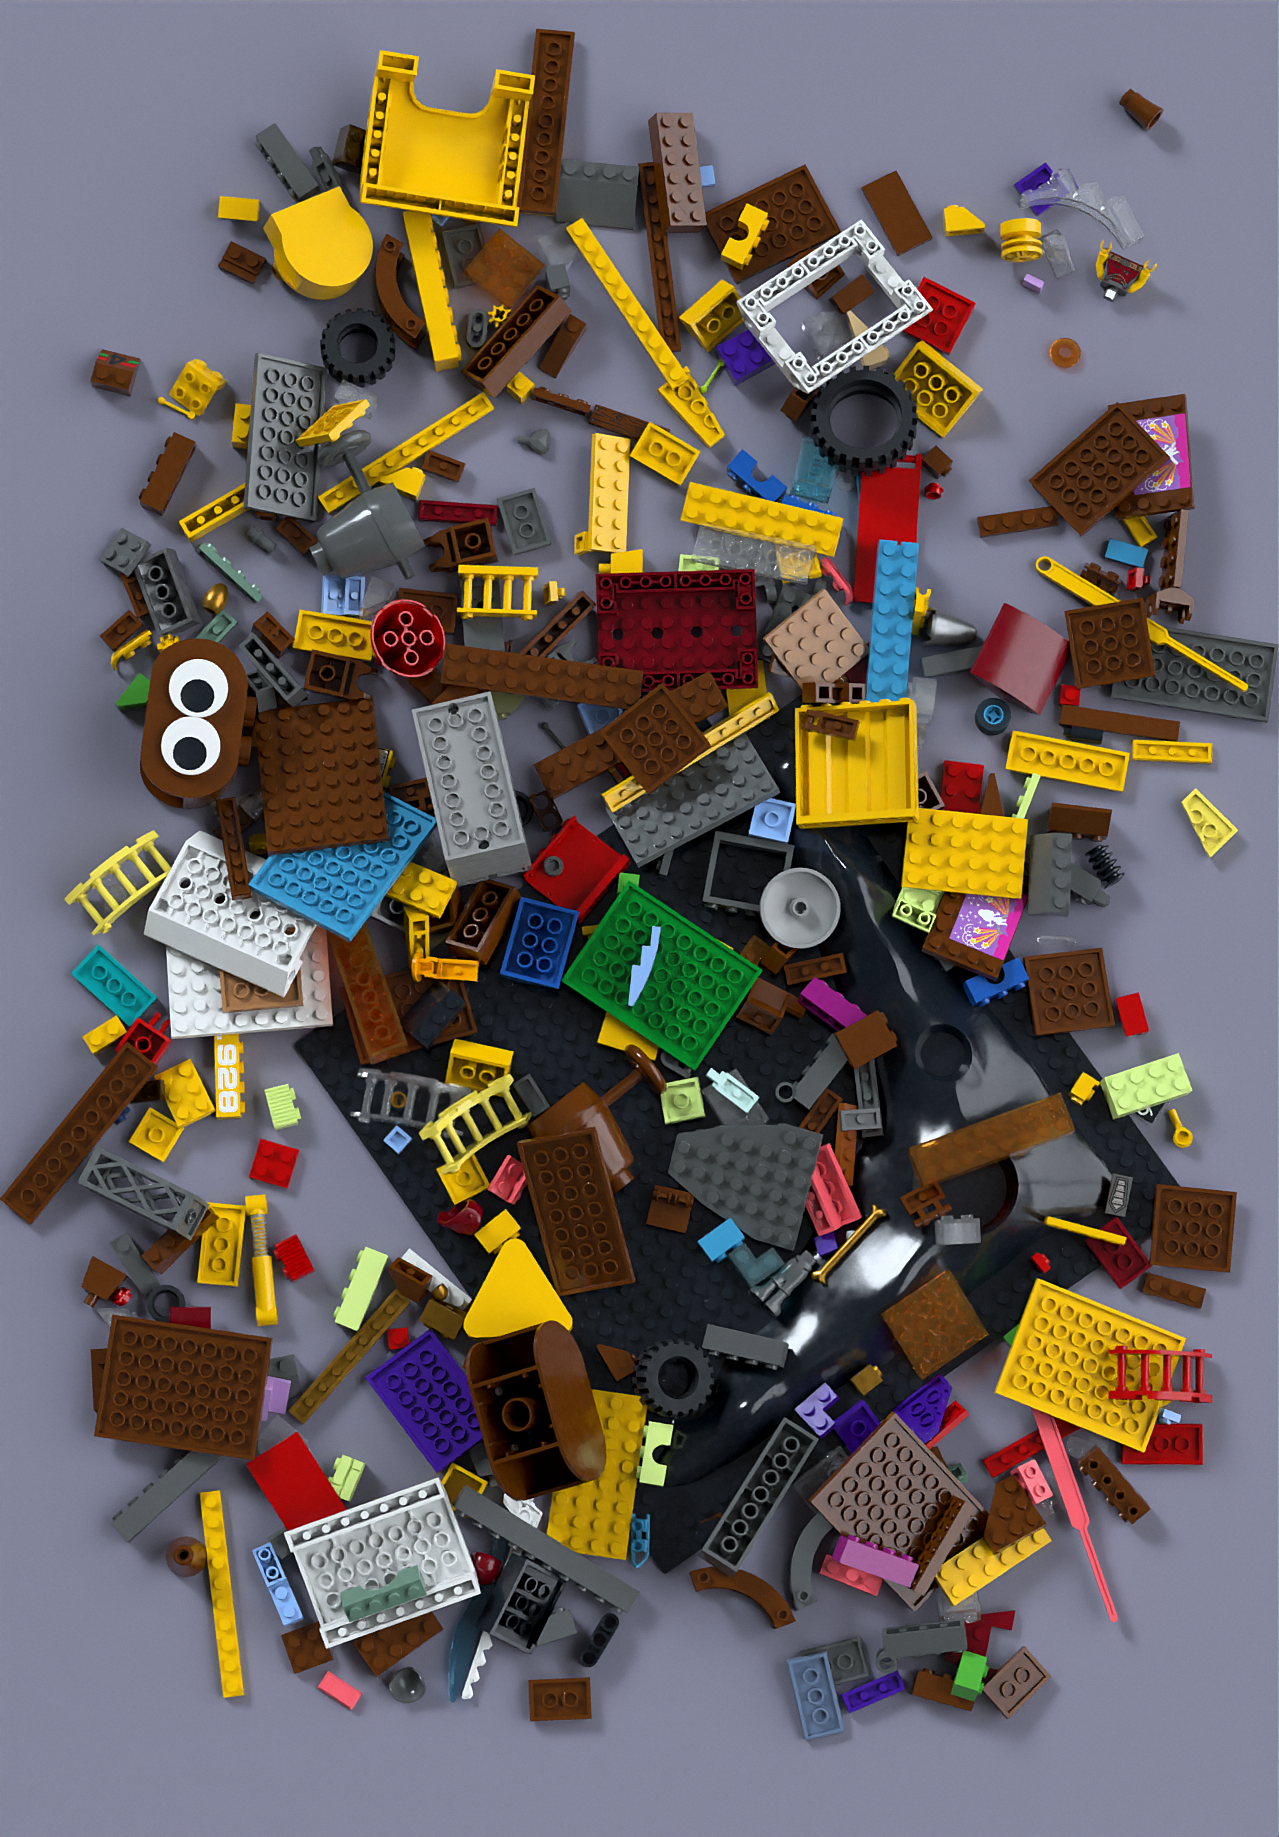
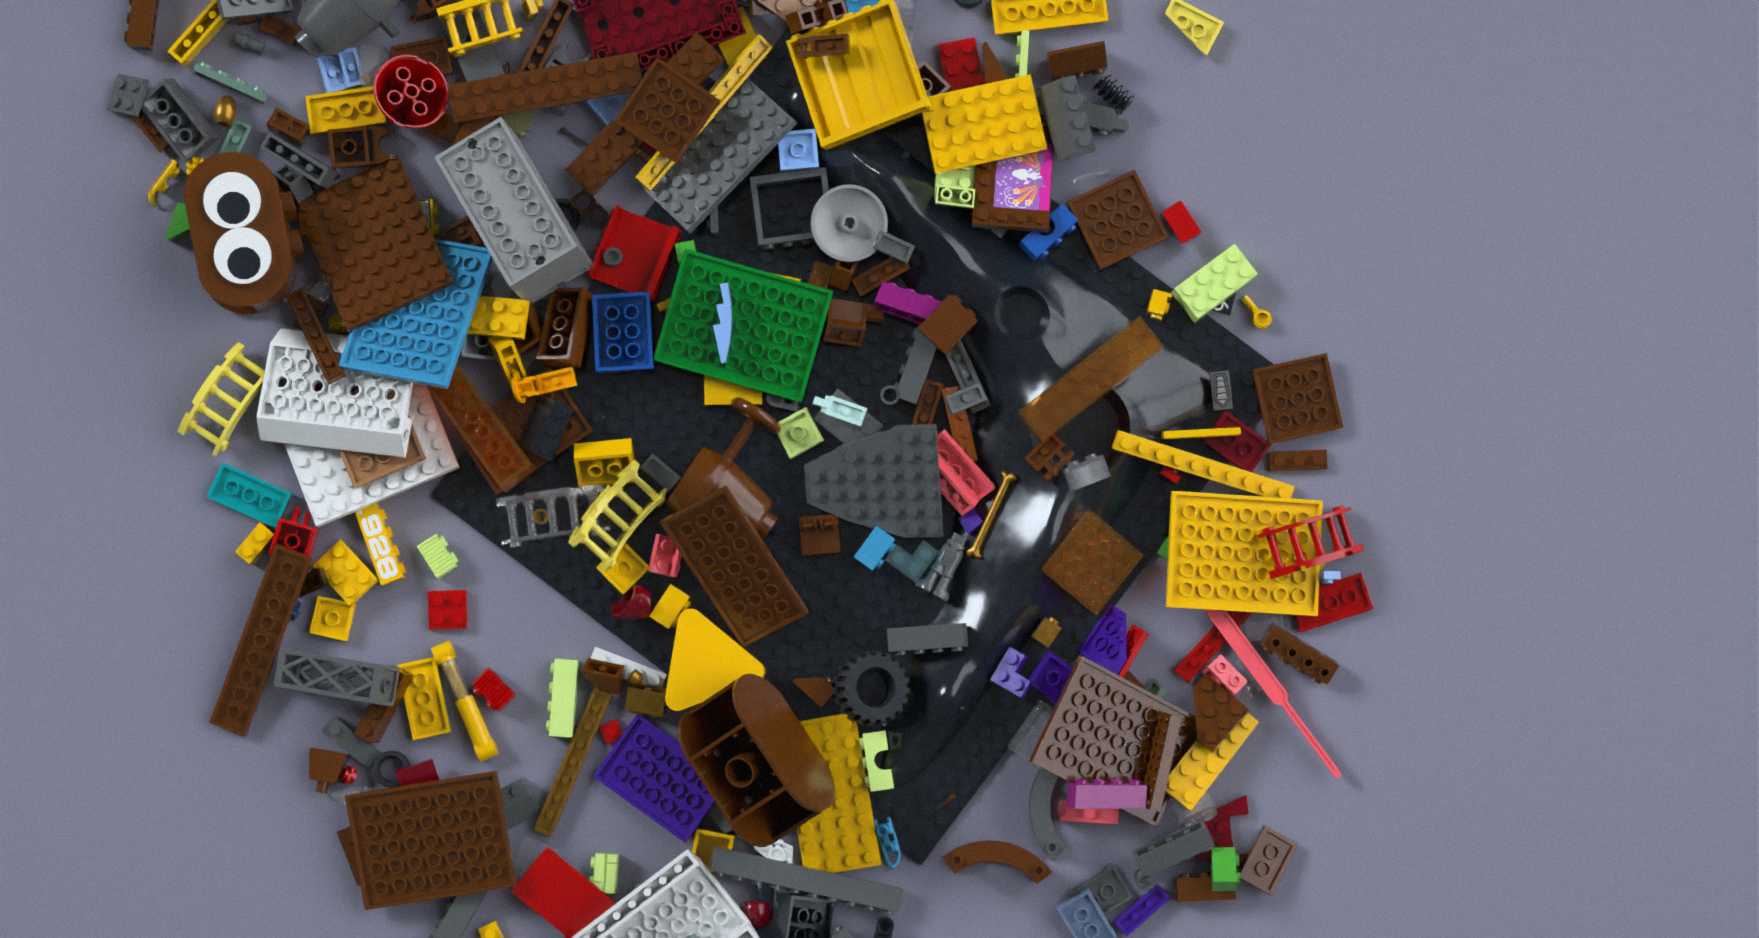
camera: 10 degrees left, 5 degrees up
(121, 630) = (149, 168): reddish brown plate -> none
(275, 1396) = (517, 821): lavender panel -> none
(397, 1139) = (552, 552): light blue plate -> none
(758, 1497) = (982, 771): dark grey brick -> none
(836, 945) = (893, 246): none -> dark grey tile
(1074, 1263) = (1201, 466): none -> yellow plate

